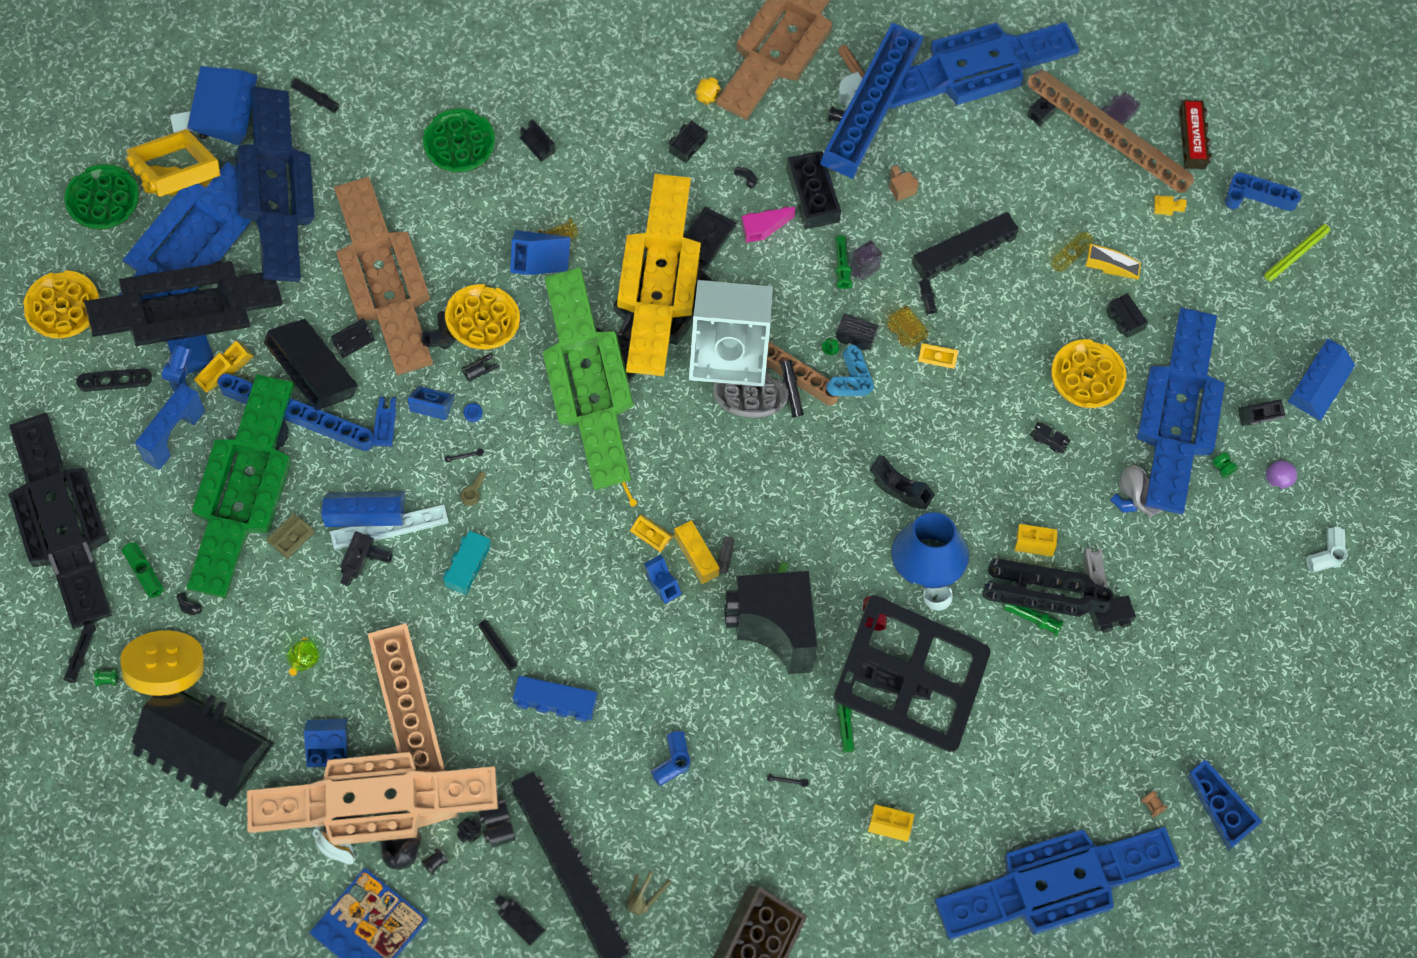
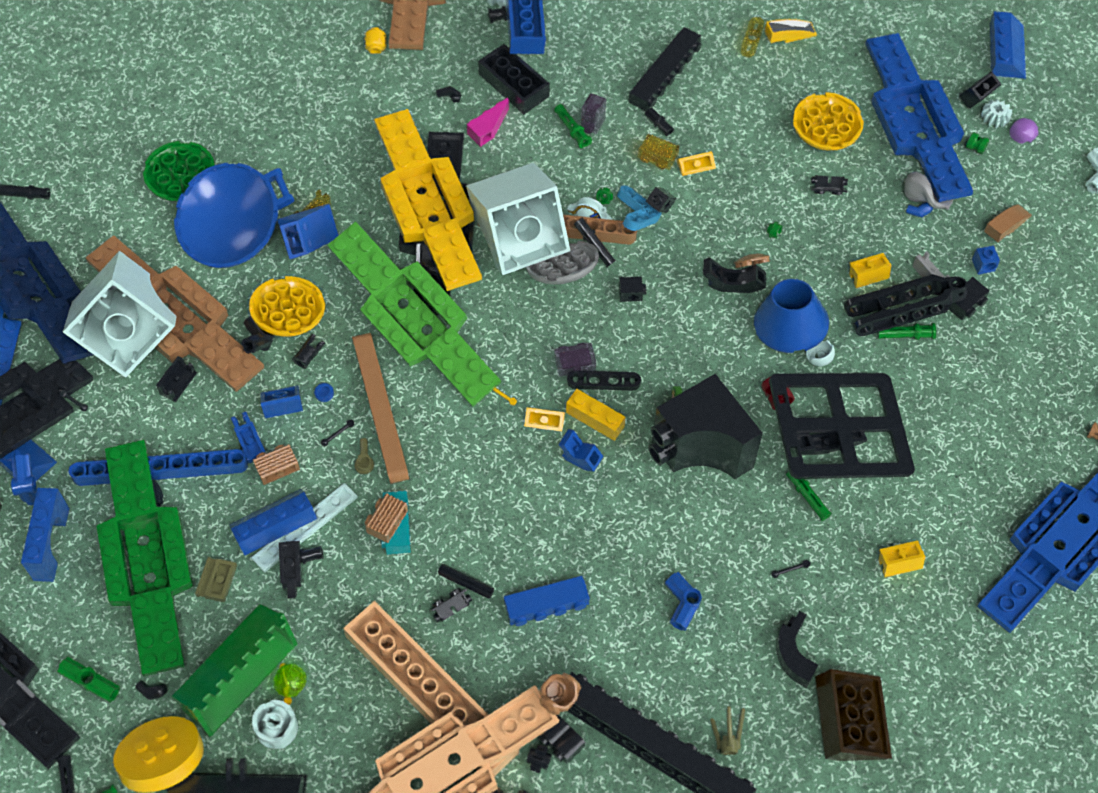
camera: 25 degrees left, 5 degrees down
(227, 363) = (70, 452): yellow slope -> none
(247, 305) = (63, 393): none -> black hinge
(260, 623) = (236, 668): none -> green piece
(269, 686) = (275, 724): none -> light aqua brick
(310, 364) = (150, 418): black brick -> none
(325, 741) = (357, 747): blue slope -> none
(329, 257) = (119, 315): none -> light aqua brick
(395, 458) = (276, 464): none -> medium nougat brick
(457, 555) = (386, 517): none -> medium nougat brick
(464, 659) = (456, 599): none -> black hinge
(478, 204) = (229, 213): none -> blue dish
(508, 784) = (559, 693): none -> medium nougat hair
(511, 451) = (380, 408): none -> medium nougat beam
(537, 141) = (249, 142): black hinge -> none
(688, 141) = (382, 87): black brick -> none
(709, 491) = (573, 358): none -> clear purple brick
(725, 554) = (619, 403): dark grey axle -> none
(727, 520) = (603, 376): none -> black beam
(736, 866) = (791, 660): none -> black arch
(801, 449) = (631, 289): none -> black brick
(808, 354) = (588, 208): none -> light aqua hat
(856, 332) = (619, 174): black brick -> none
(879, 376) = (659, 198): none -> black brick
(902, 184) = (584, 44): medium nougat brick -> none
(934, 477) = (751, 259): none -> medium nougat dish
(969, 455) = (773, 229): none -> green plate
(1126, 315) = (827, 65): black brick -> none
(1154, 584) = (985, 260): none -> blue brick
(1202, 557) = (1007, 222): none -> medium nougat slope
(1257, 446) = (996, 113): none -> light aqua gear

